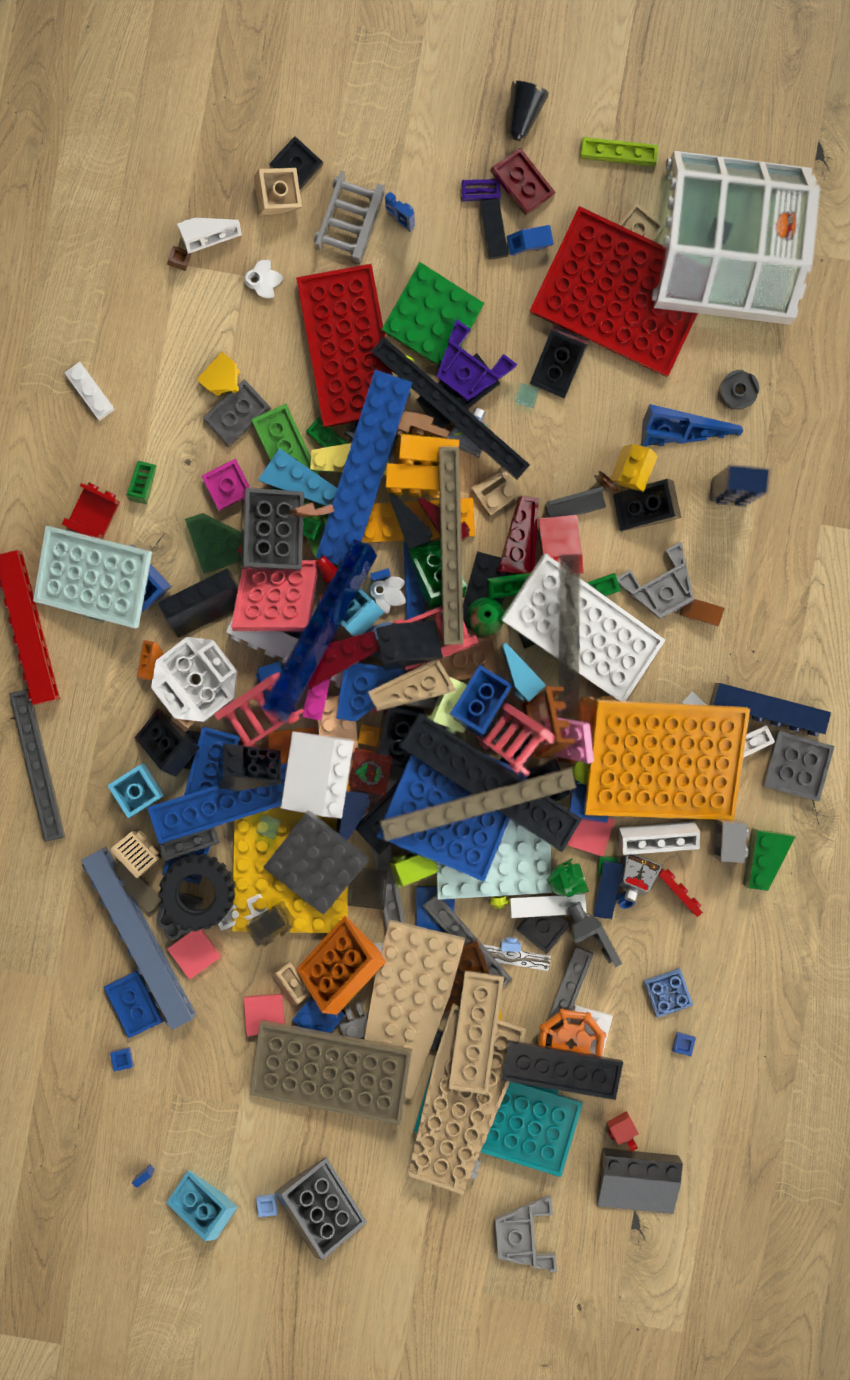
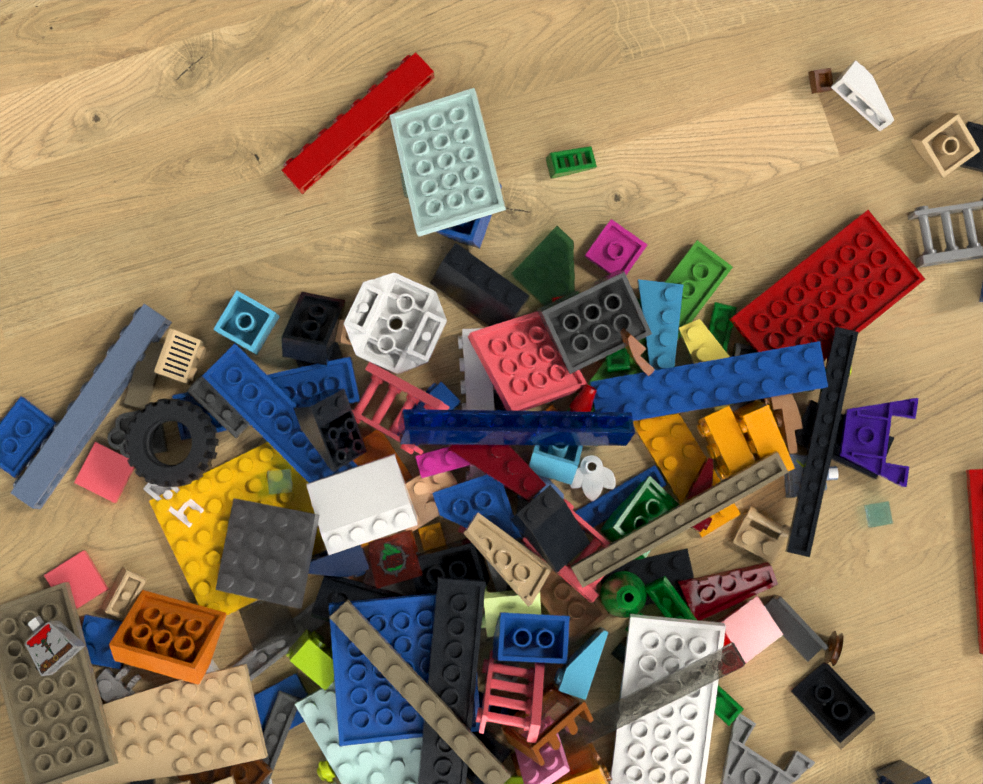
camera: 60 degrees right, 5 degrees down
(37, 766) = (219, 207): dark grey tile -> none
(89, 391) = (636, 61): white plate -> none
(92, 511) = (513, 127): red panel -> none
(149, 654) = (397, 262): orange slope -> none
(220, 375) = (724, 185): yellow slope -> none
(234, 413) = (695, 219): flat silver tile -> none
(266, 281) = (850, 179): white plate -> none
(270, 923) = (176, 538): clear smoke brick -> none
(300, 1055) = (51, 645): none -> light grey torso
(380, 575) = (607, 459): blue tile -> none
(411, 526) = (676, 465): black slope -> none
(428, 311) = (906, 365): green plate -> none
(559, 361) = (932, 529): black slope -> none
(634, 467) = (867, 669): yellow slope -> none
(669, 425) = (930, 683): blue wedge -> none

